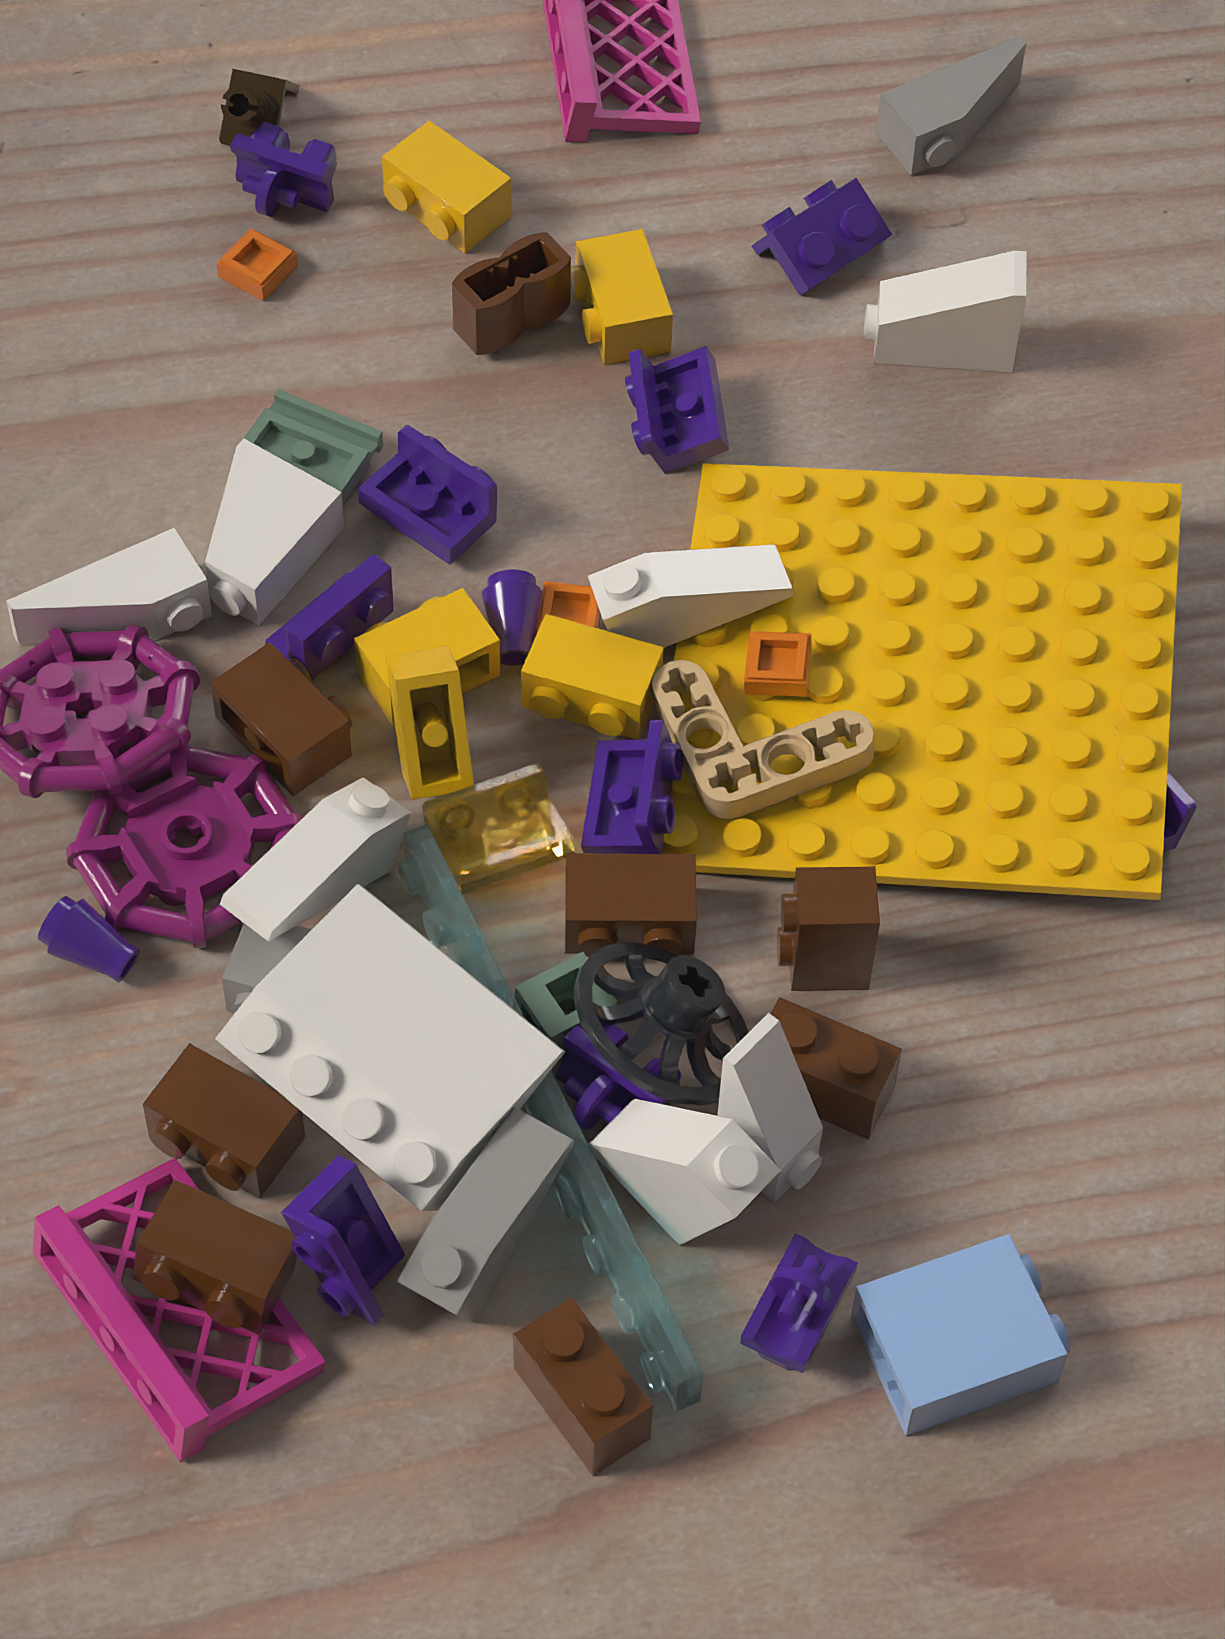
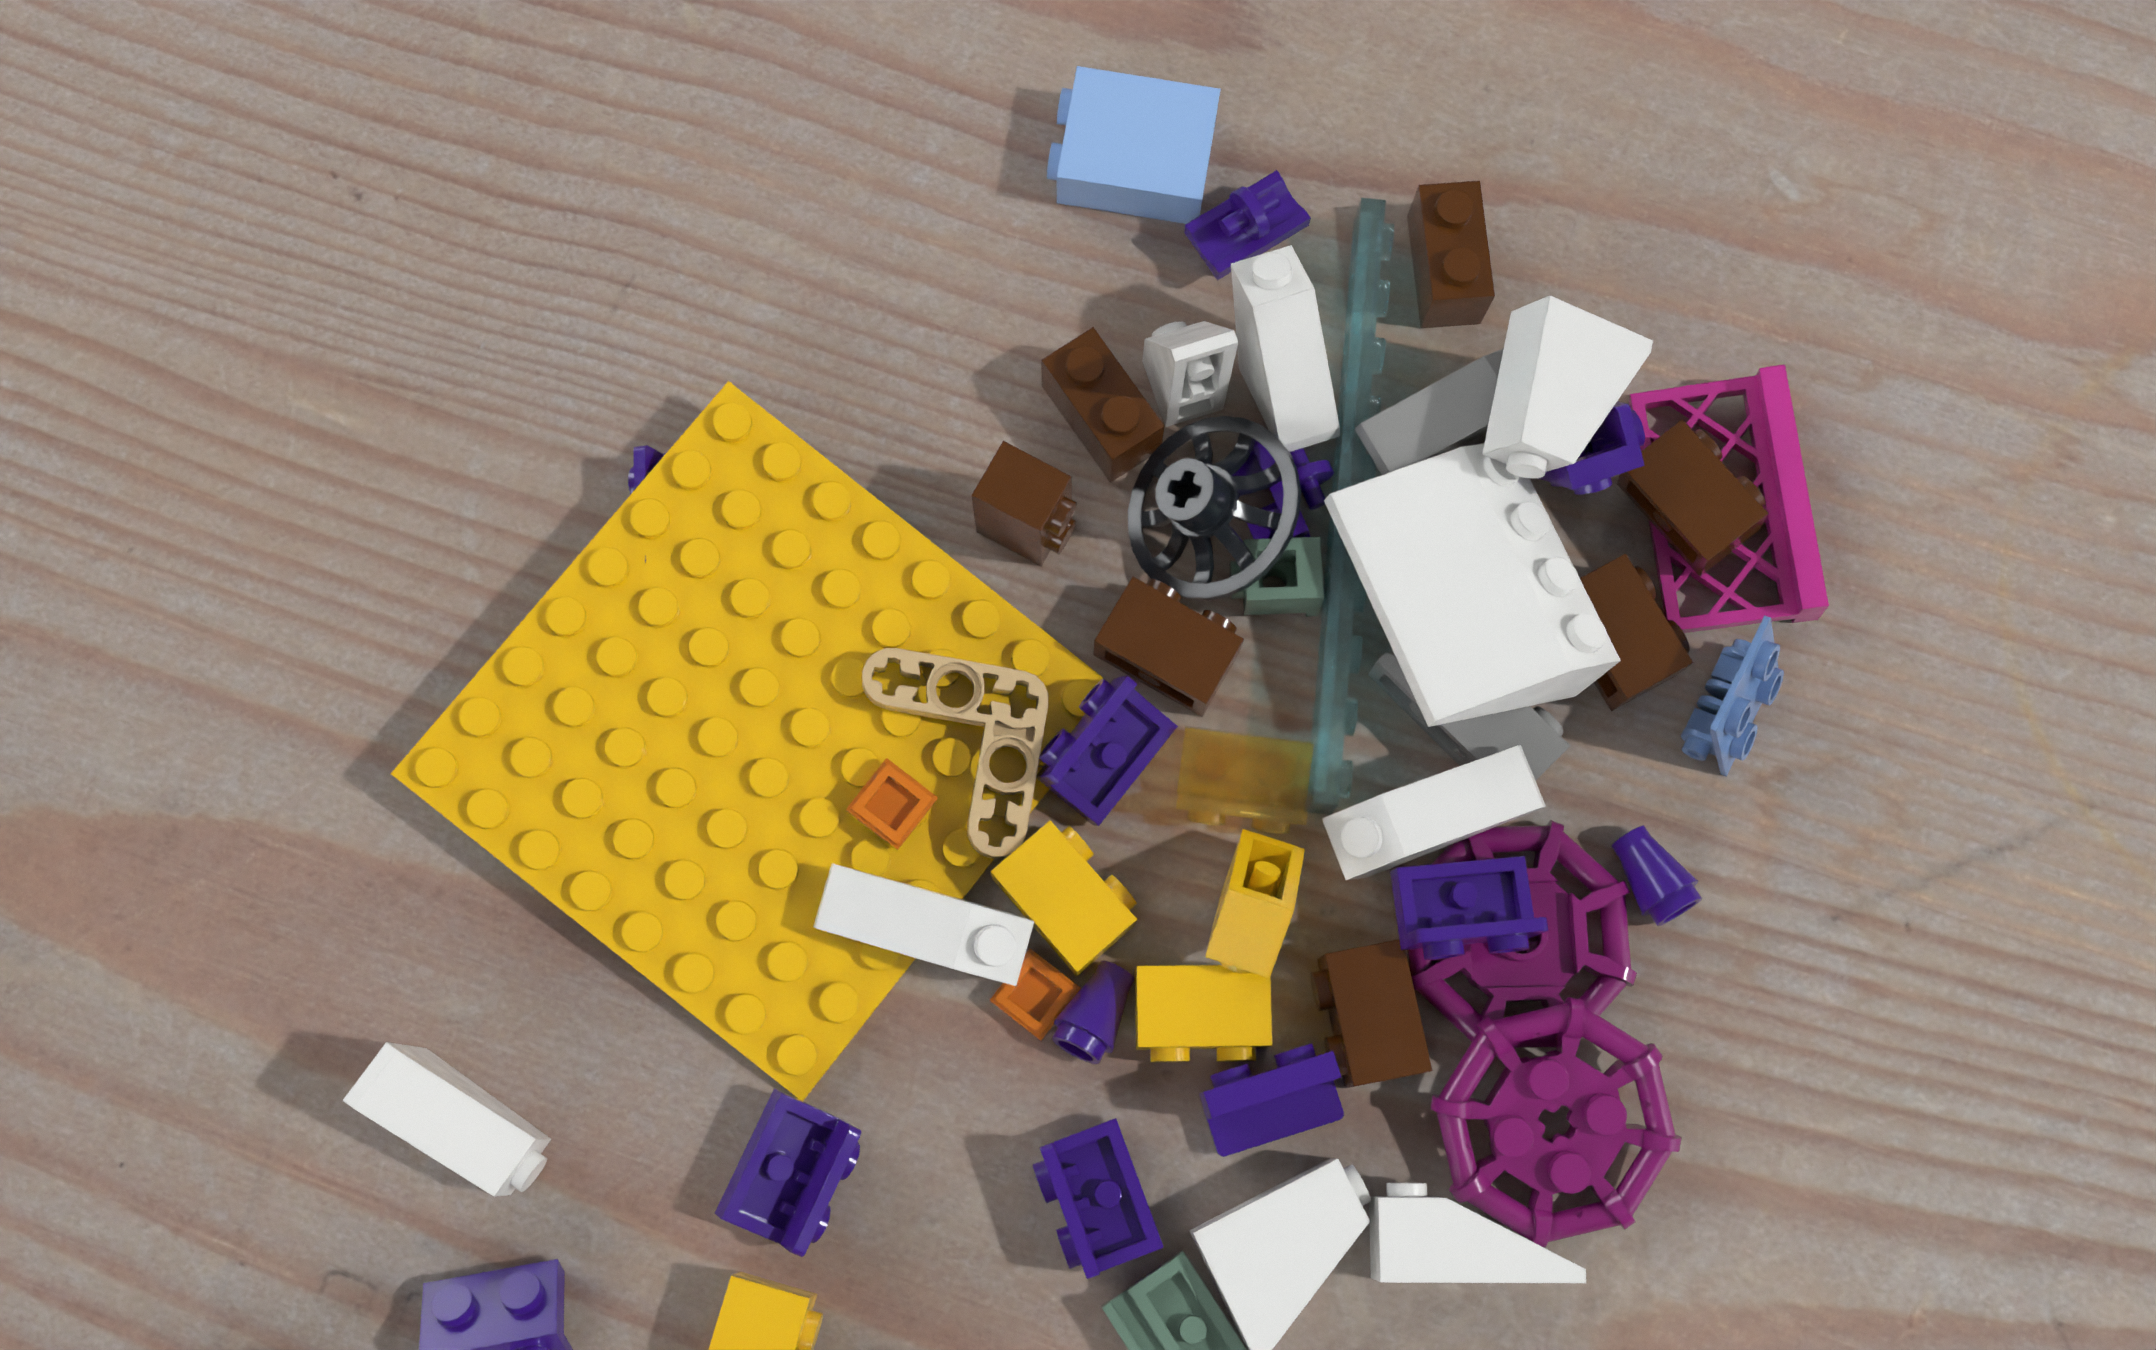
camera: 150 degrees left, 20 degrees up
(86, 1110) = (1741, 681): none -> medium blue hinge
(245, 798) = (1465, 904): none -> dark purple bracket
(400, 1238) = (1557, 384): none -> white slope

